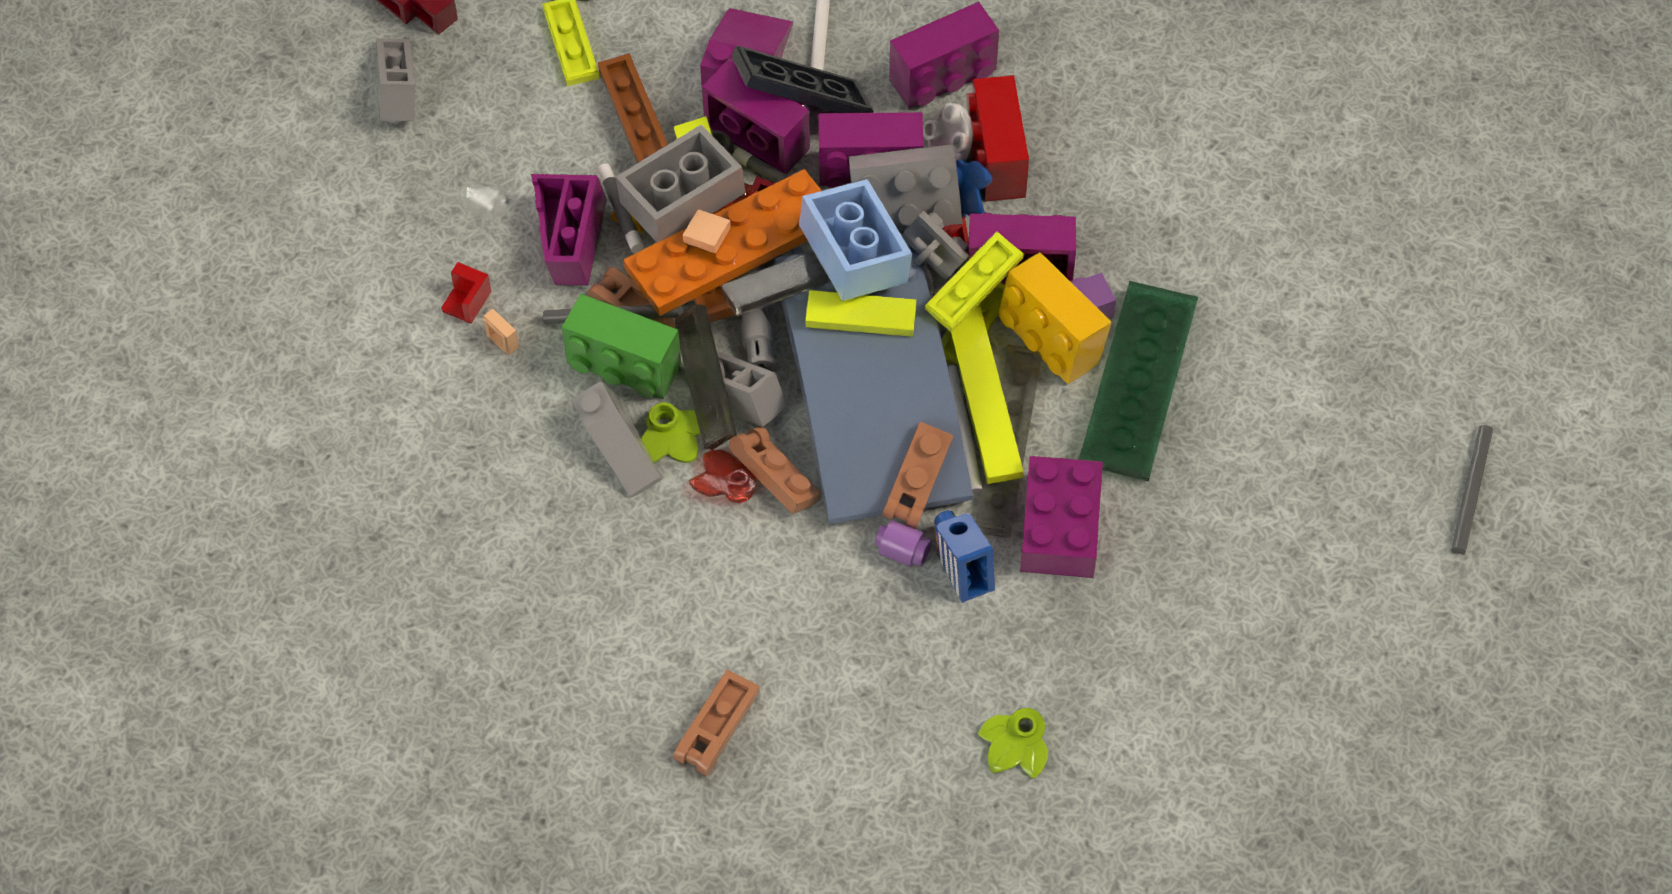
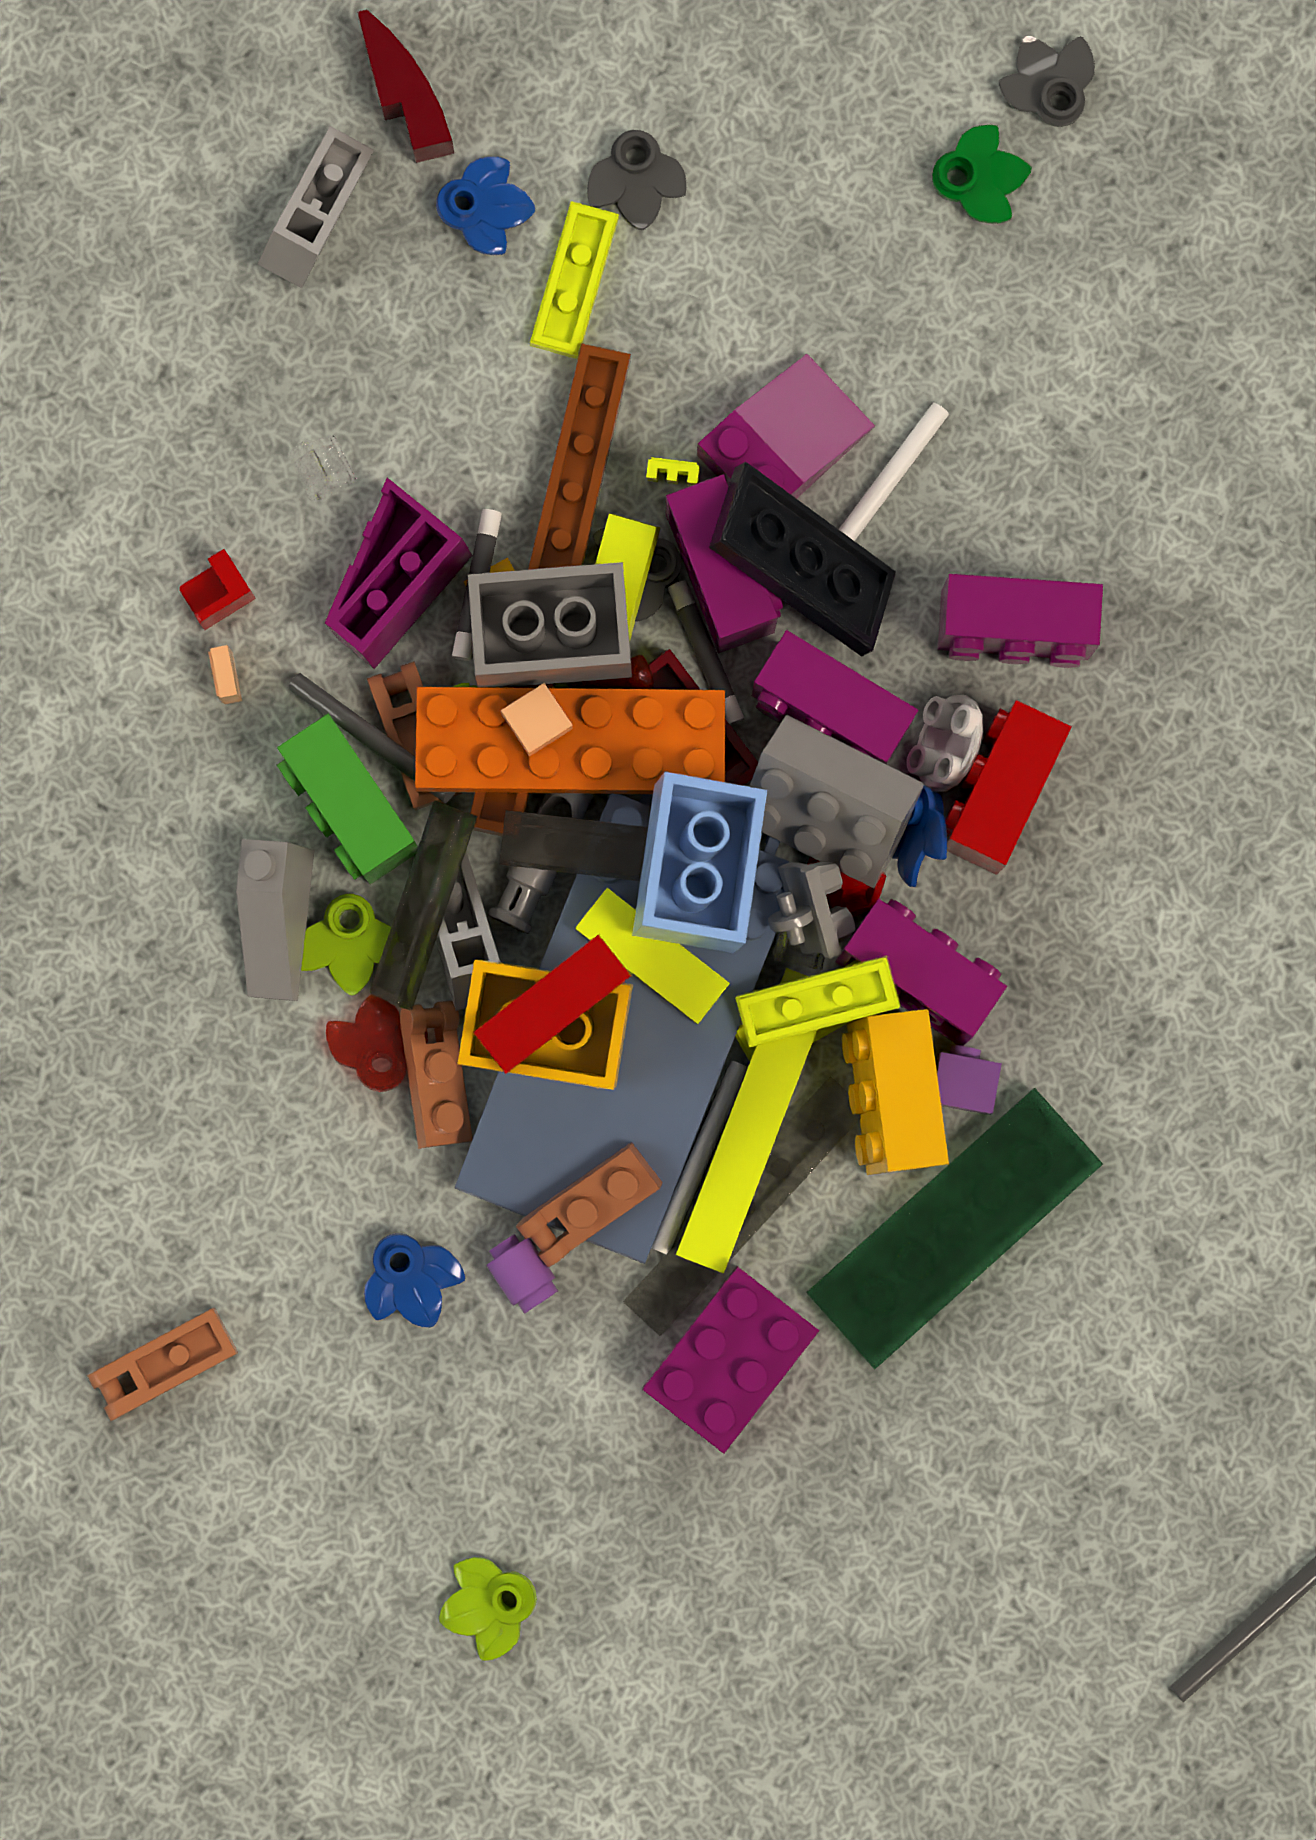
camera: 30 degrees right, 25 degrees up
(493, 31) = (492, 205): none -> blue plate
(684, 98) = (673, 469): none -> neon yellow tile
(822, 345) = (552, 1004): none -> red tile
(824, 372) = (581, 1053): none -> yellow brick
(841, 593) = (414, 1286): none -> blue plate
(960, 542) = (577, 1353): blue torso -> none

